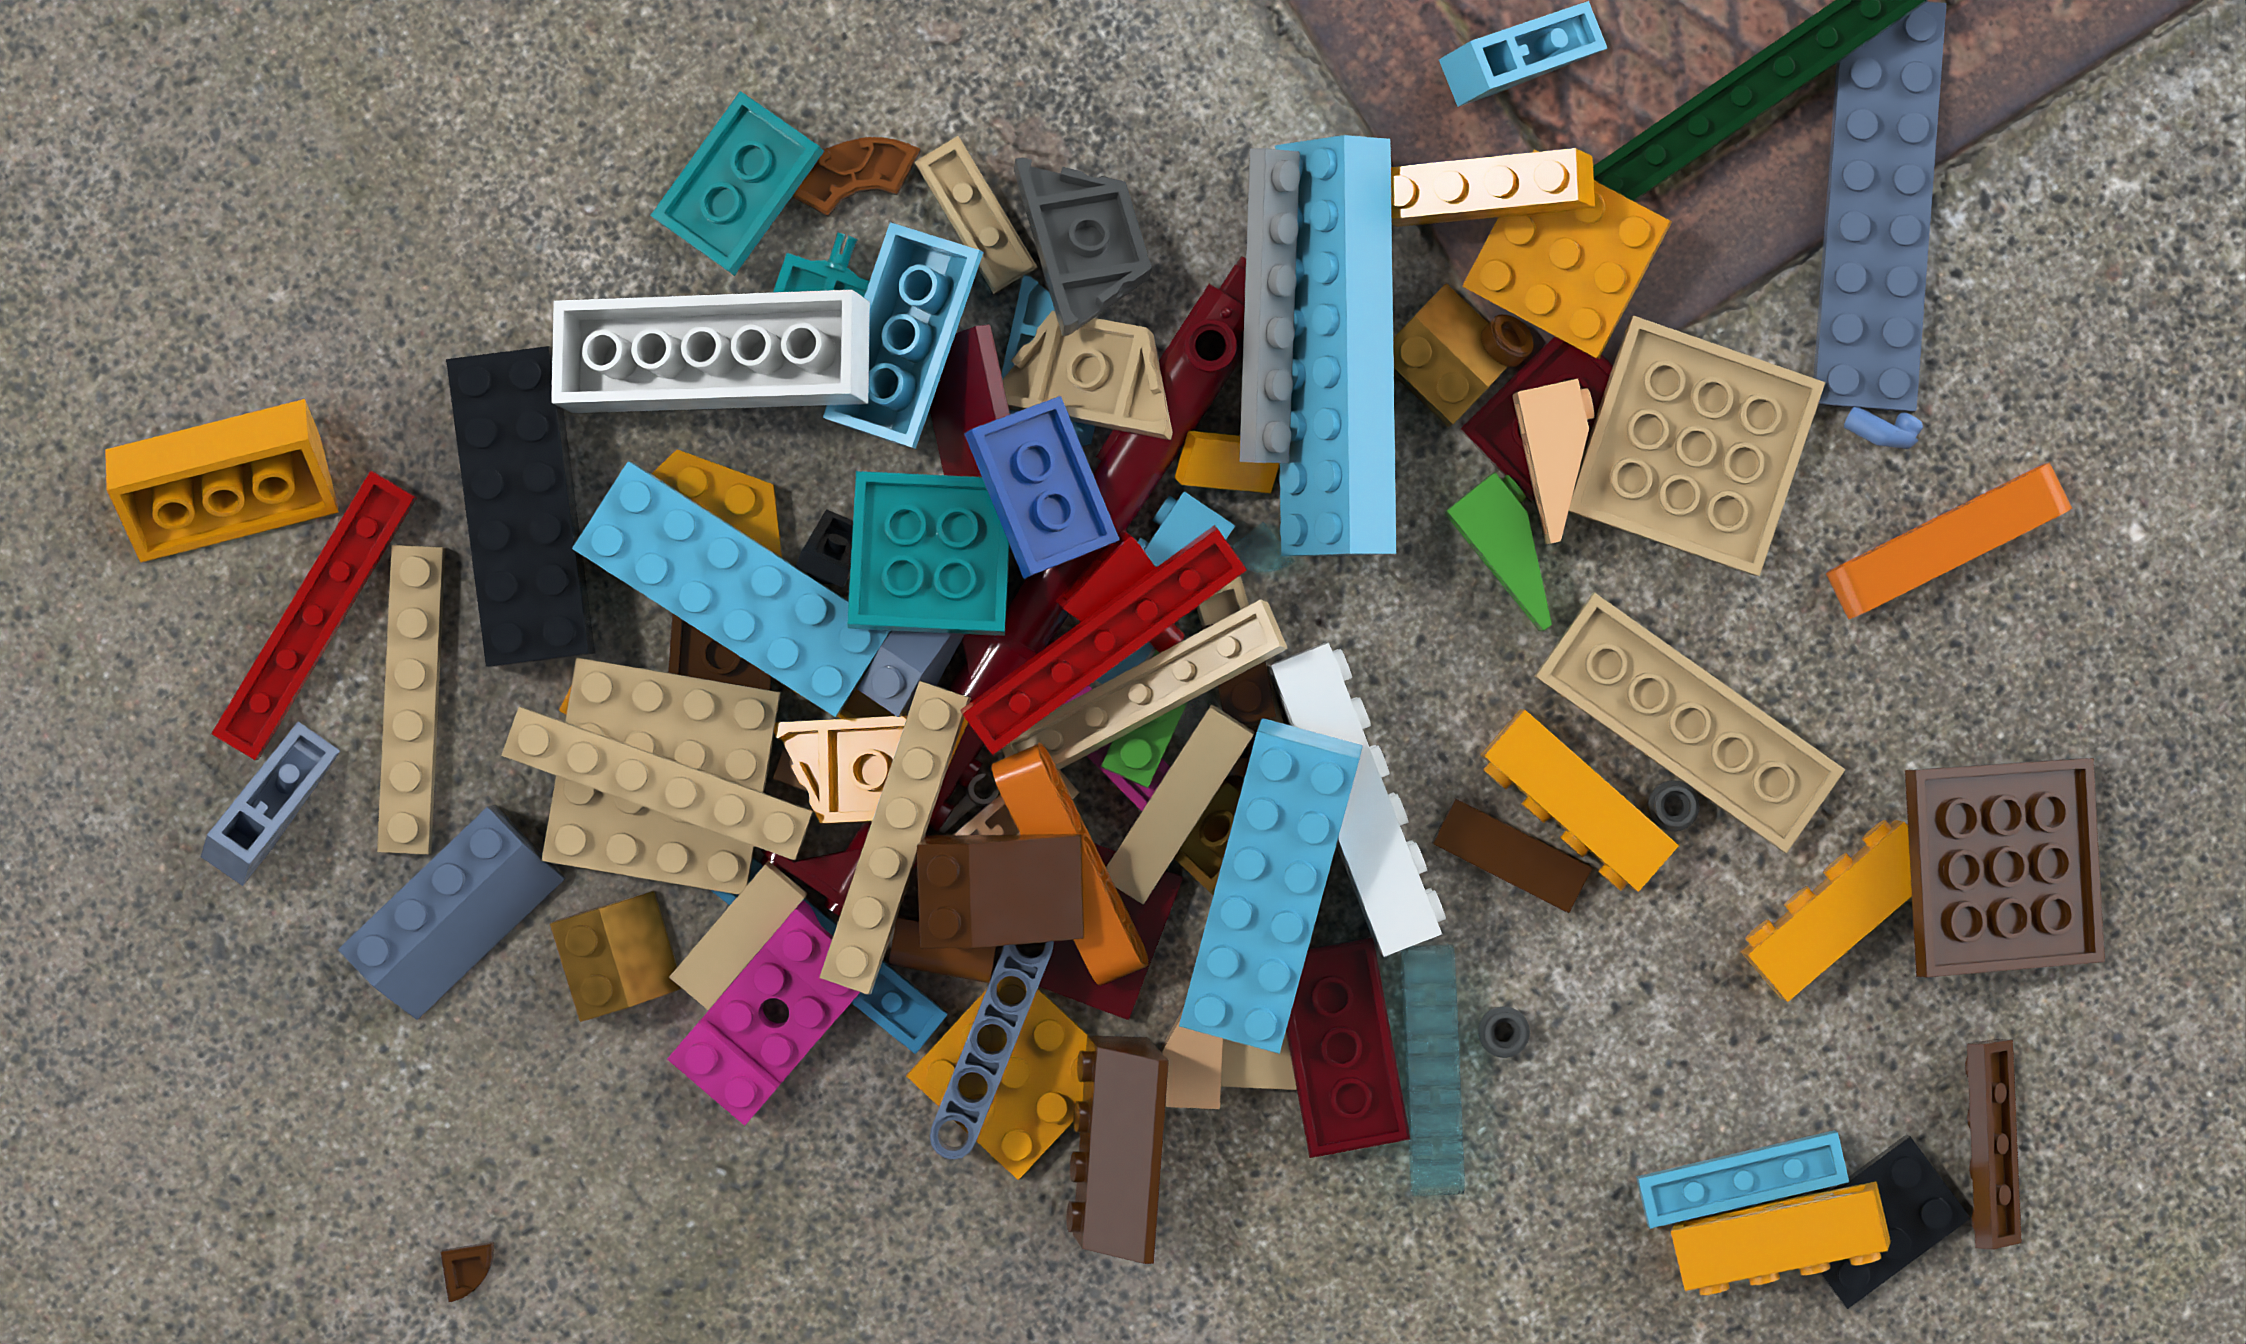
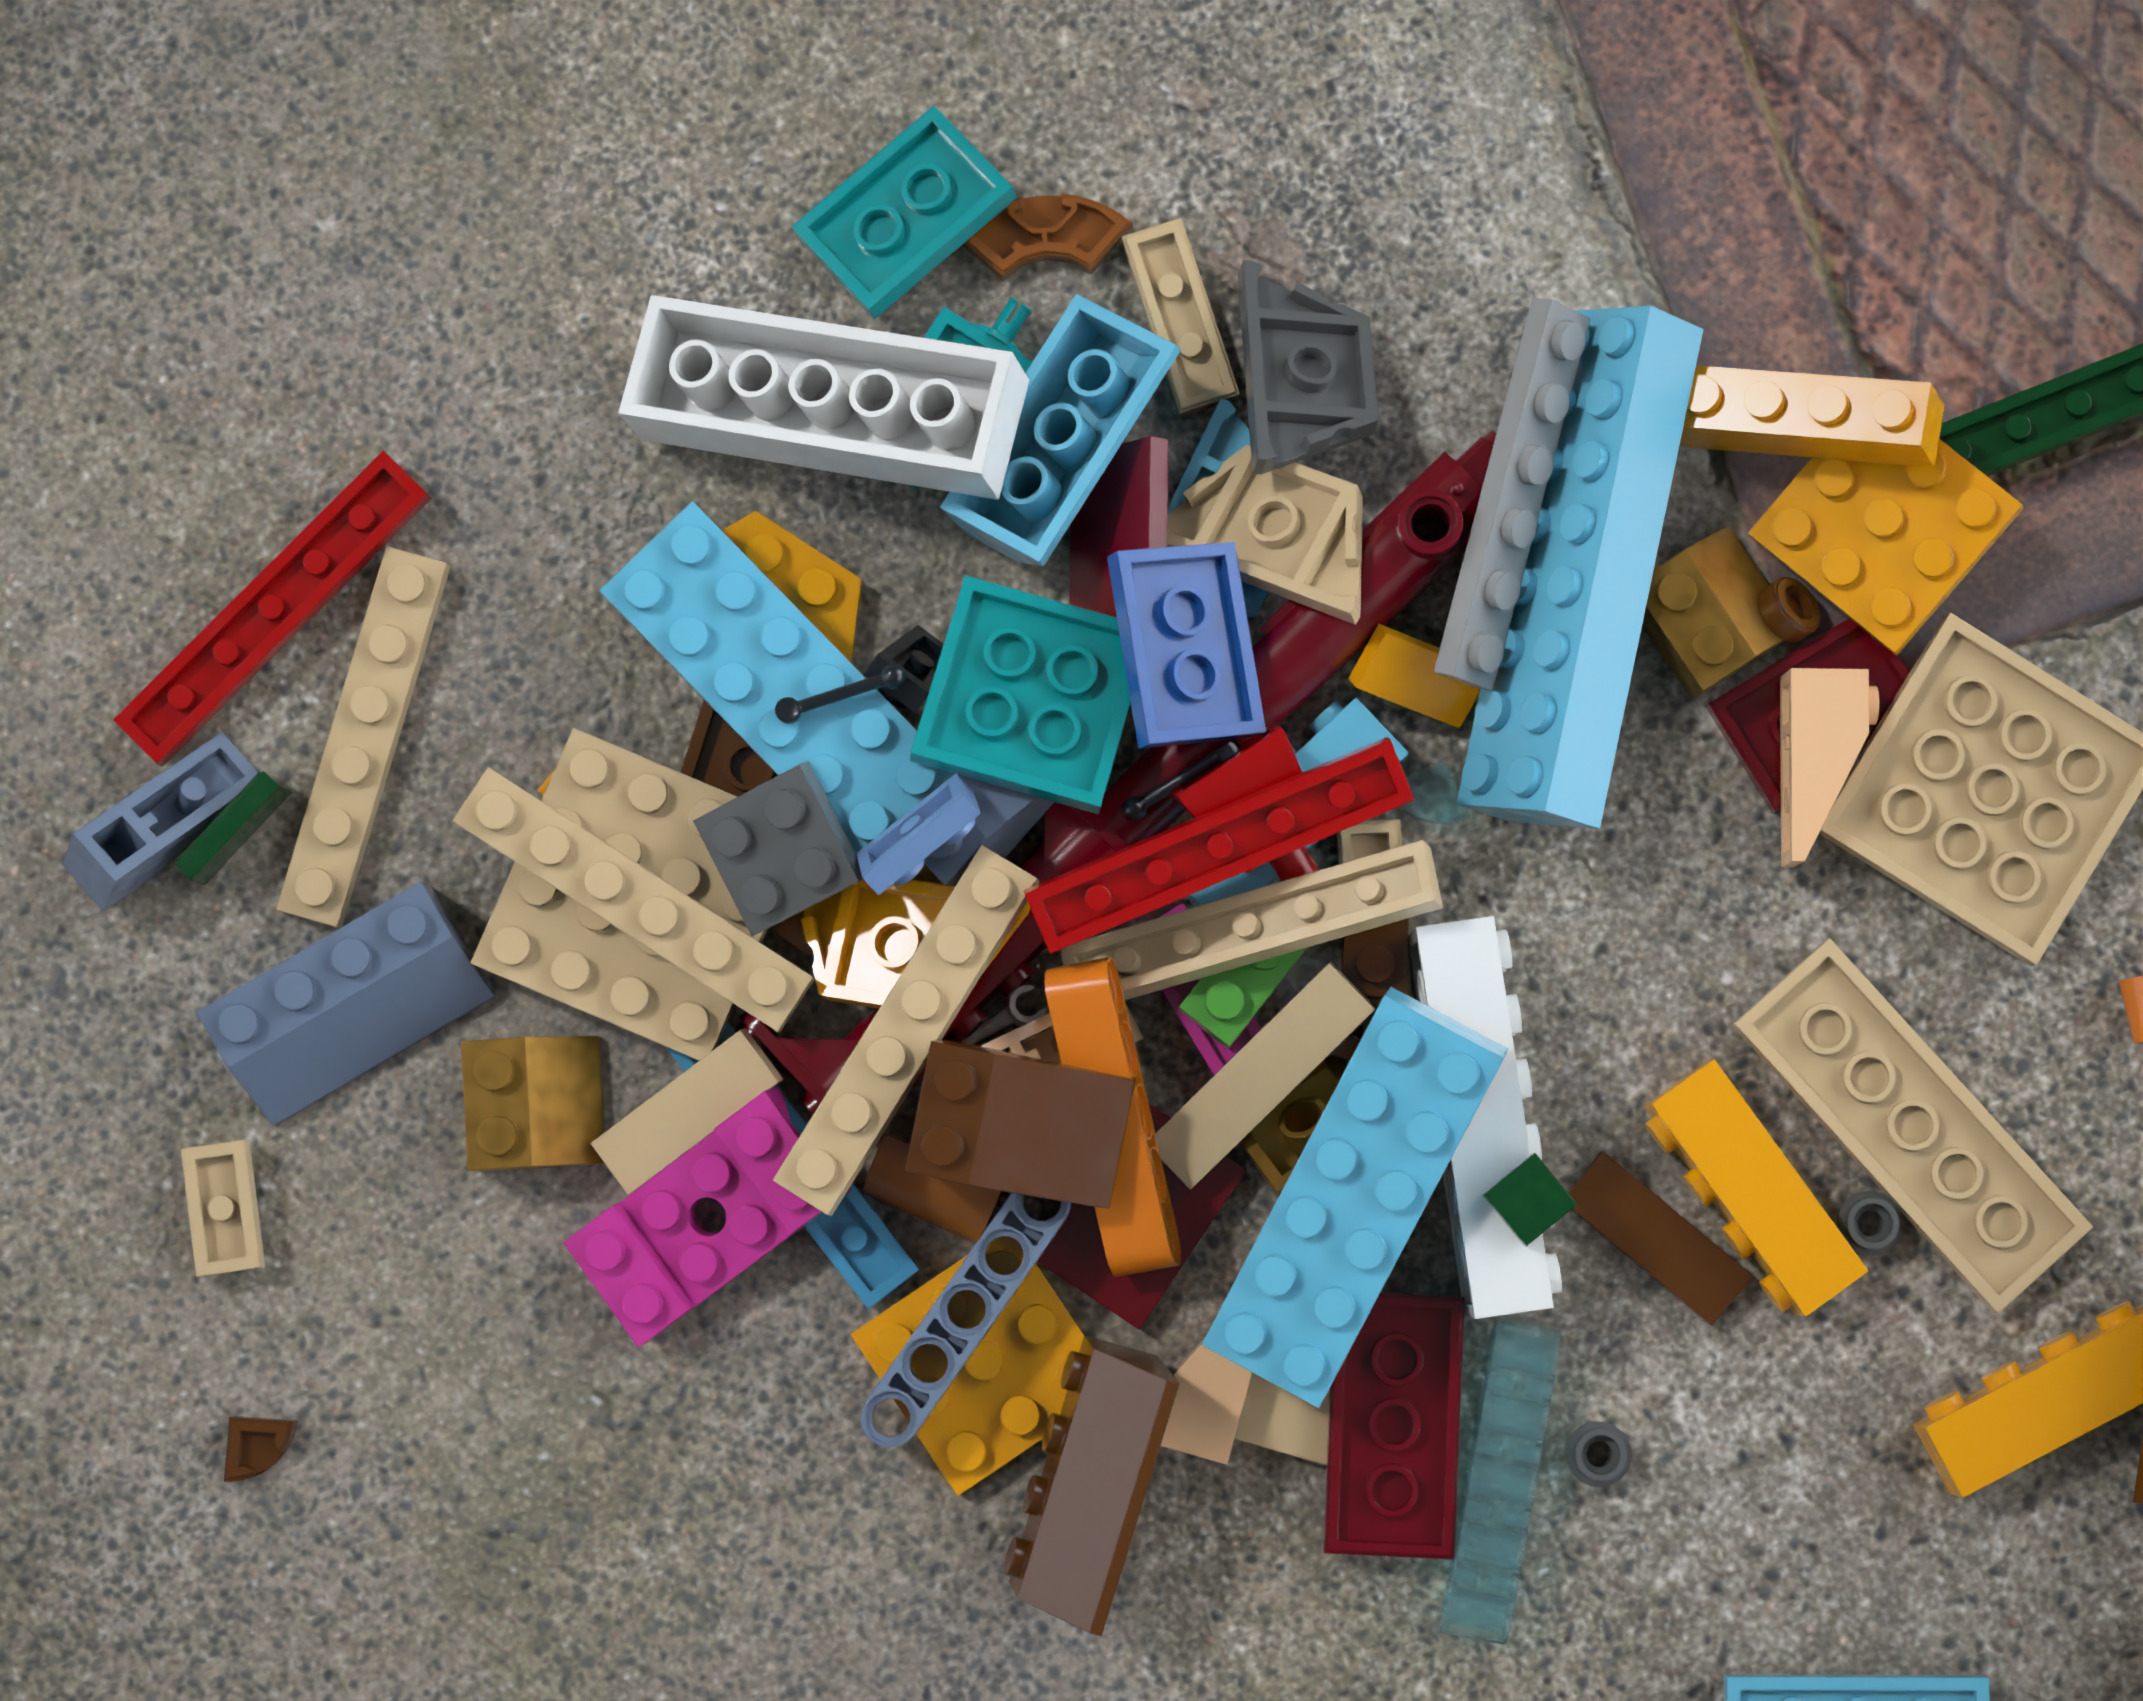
camera: 25 degrees right, 5 degrees down
(220, 480) = (201, 423): light orange slope -> none
(326, 796) = (232, 828): none -> dark green tile
(394, 1093) = (222, 1208): none -> tan plate
(520, 507) = (549, 536): black brick -> none
(744, 609) = (790, 710): none -> black hinge
(763, 718) = (779, 848): none -> dark grey plate
(859, 696) = (901, 849): none -> medium blue plate
(1032, 620) = (1135, 807): none -> black hinge
(1405, 856) = (1529, 1199): none -> dark green tile
(1502, 537) = (1730, 845): bright green slope -> none
(1522, 53) = (1879, 272): medium azure slope -> none

